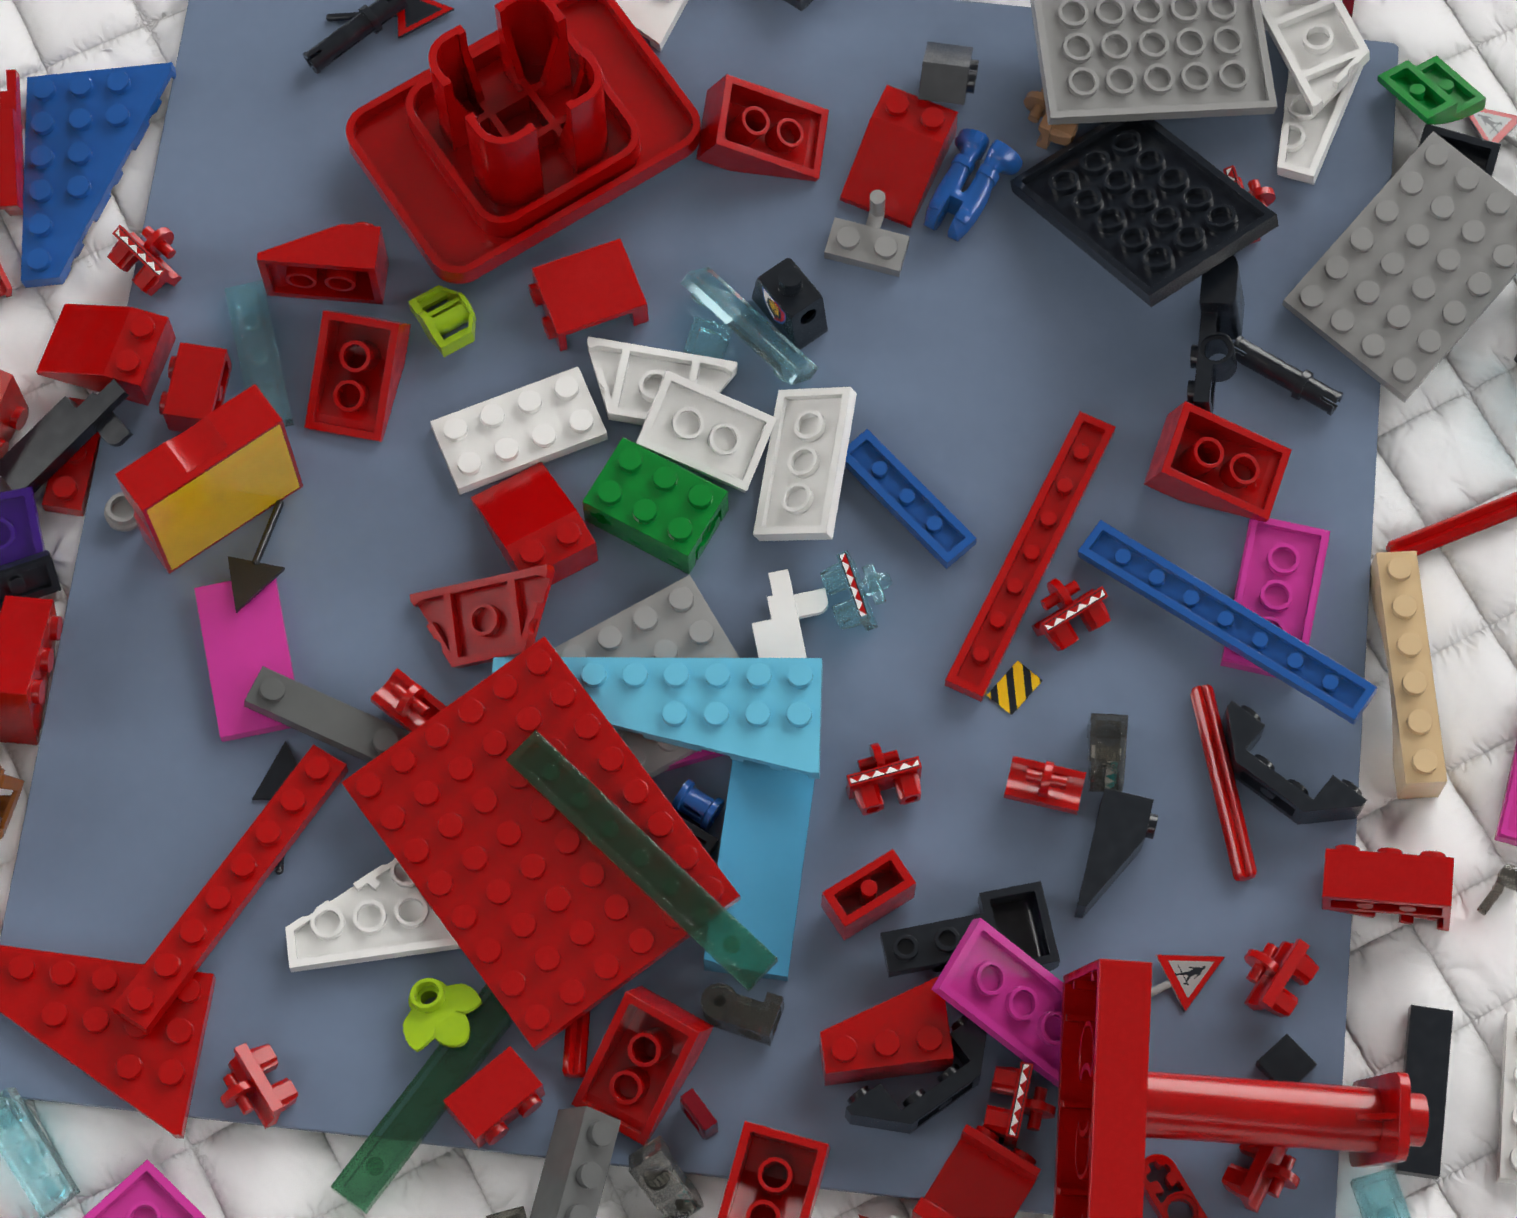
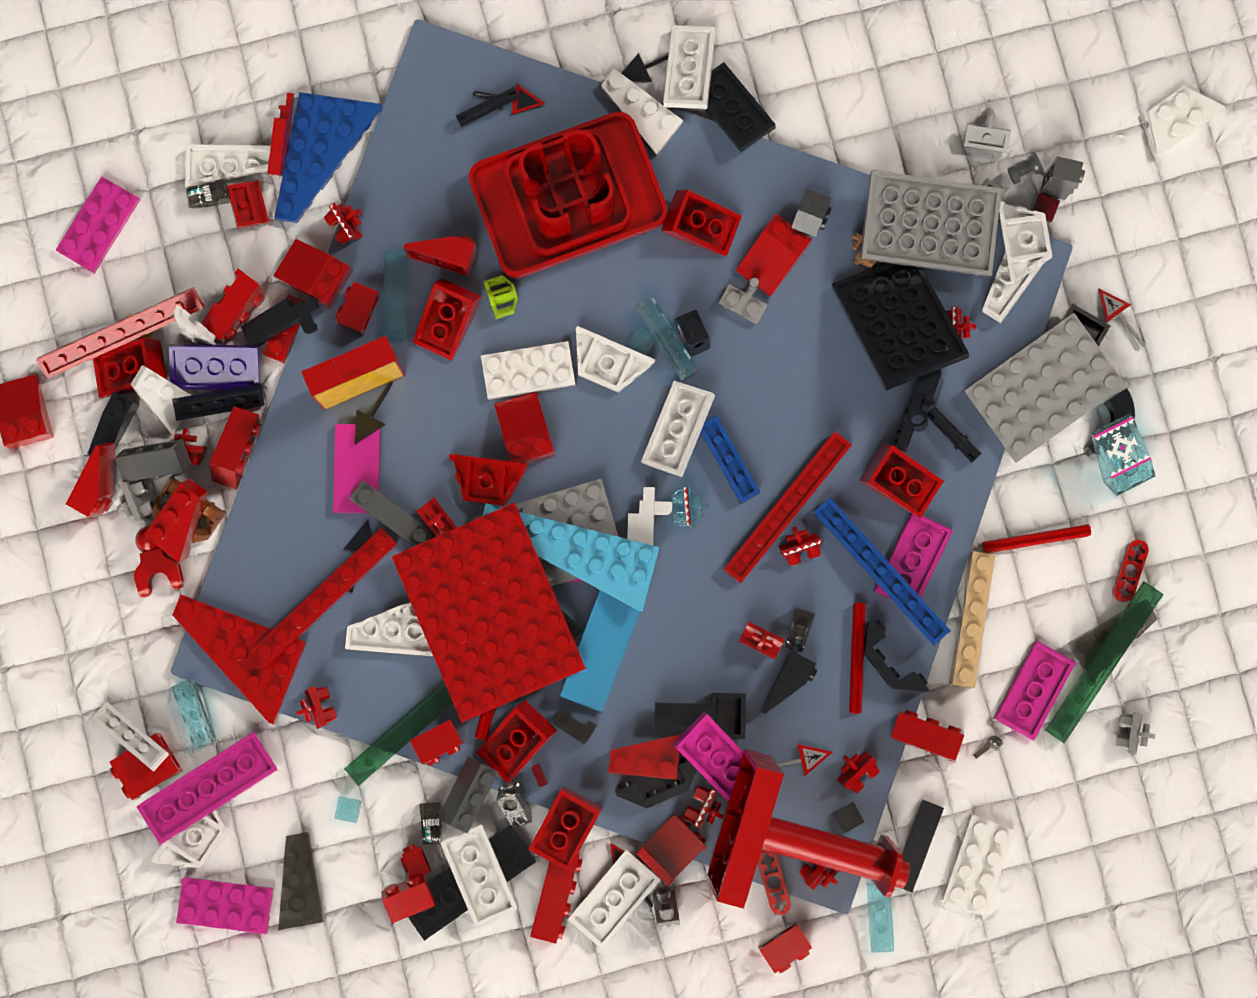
camera: 10 degrees right, 15 degrees up
(120, 513) = (302, 365): light grey plate -> none
(443, 1018) = (417, 694): lime plate -> none
(587, 291) = (582, 299): red panel -> none
(642, 860) = (538, 639): clear green tile -> none
(655, 505) = (591, 433): green piece -> none
(697, 805) = (576, 608): blue bush -> none
(706, 431) = (628, 398): white plate -> none
(868, 894) = (654, 679): red brick -> none
(881, 773) = (667, 618): red hips -> none
(969, 204) = (807, 292): blue piece -> none
(1014, 688) = (760, 578): sticker -> none
(1433, 91) = (1083, 281): green slope -> none

